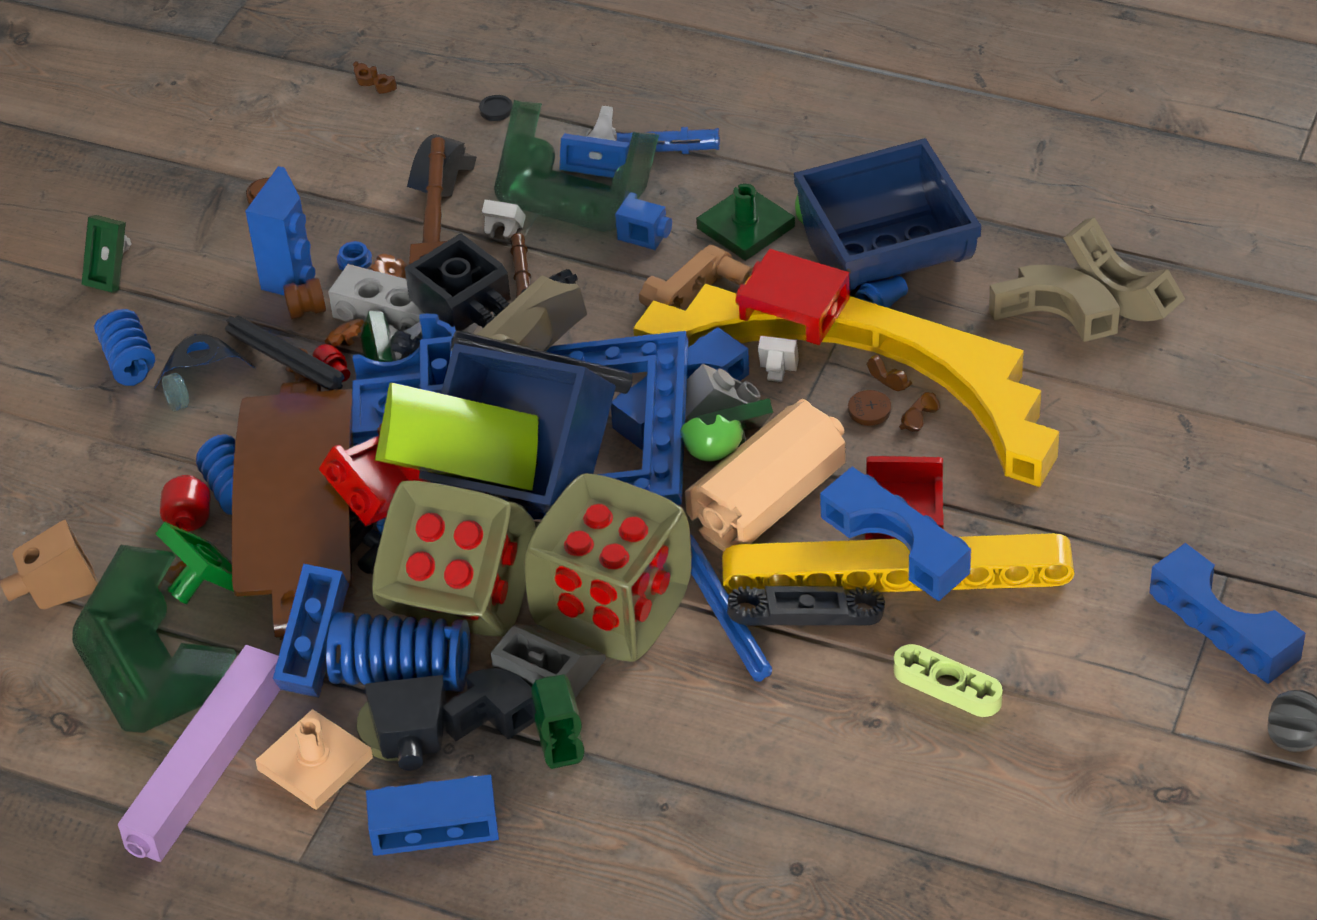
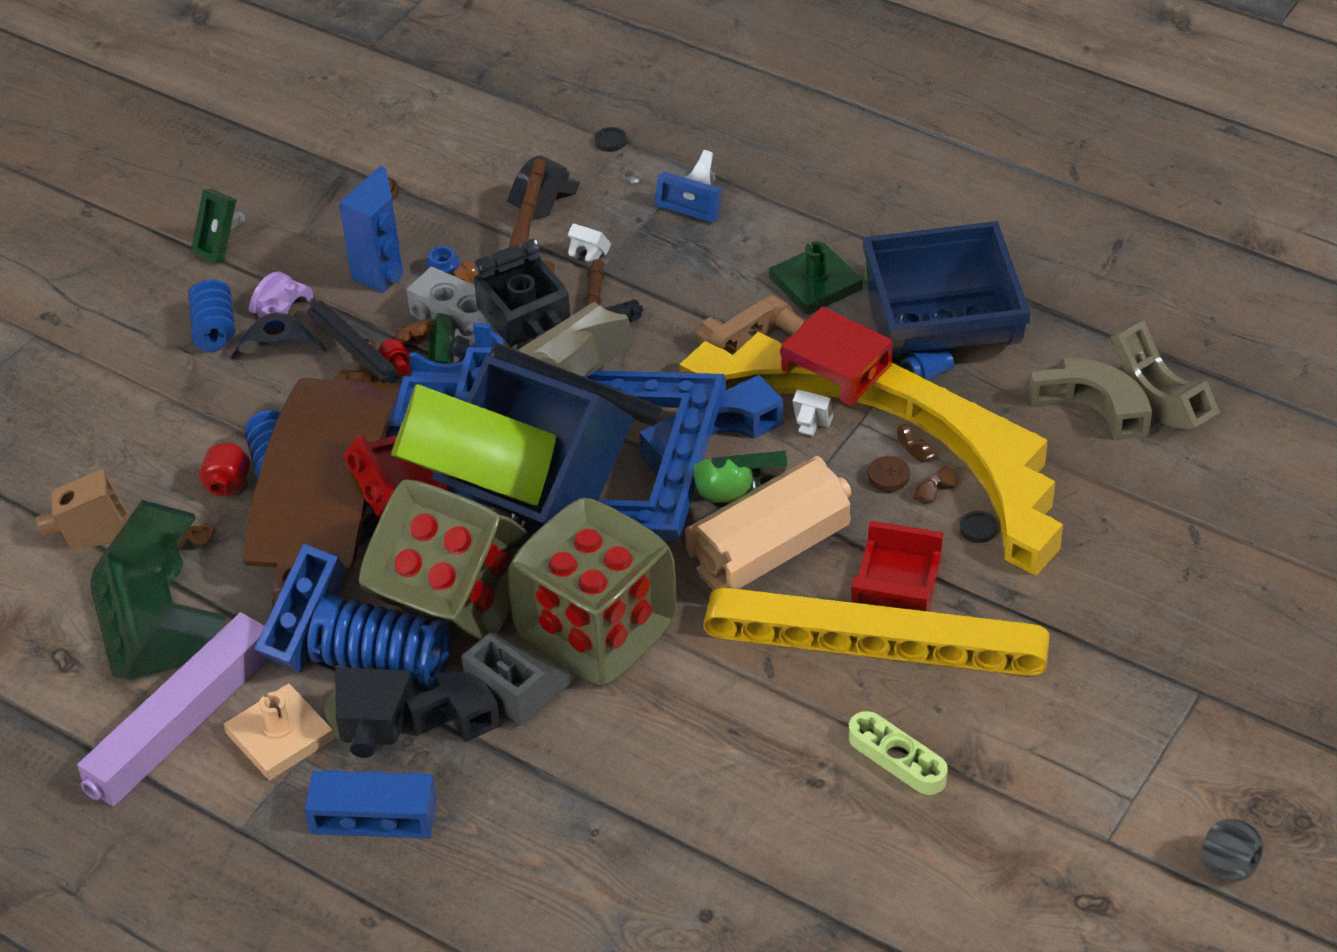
camera: 10 degrees right, 0 degrees up
(175, 391) = (245, 363): clear light blue tile -> none
(189, 316) = (277, 294): none -> lavender piece
(201, 560) = (222, 524): green tile -> none
(304, 298) = (385, 292): reddish brown wheel -> none
(369, 76) = (502, 95): reddish brown piece -> none
(437, 244) = (507, 258): none -> black axle
(530, 182) = (623, 211): clear green windscreen -> none
(557, 721) = (509, 733): dark green brick -> none
(642, 222) = (716, 265): blue brick -> none
(708, 140) = (798, 194): blue pin -> none
(716, 390) = (742, 435): light grey slope -> none
(718, 599) = (700, 650): blue axle -> none
(805, 605) = (777, 657): black plate -> none
(860, 506) = (849, 569): blue arch -> none
(971, 447) = (978, 526): none -> black piece
(1261, 642) = (1215, 764): blue arch -> none

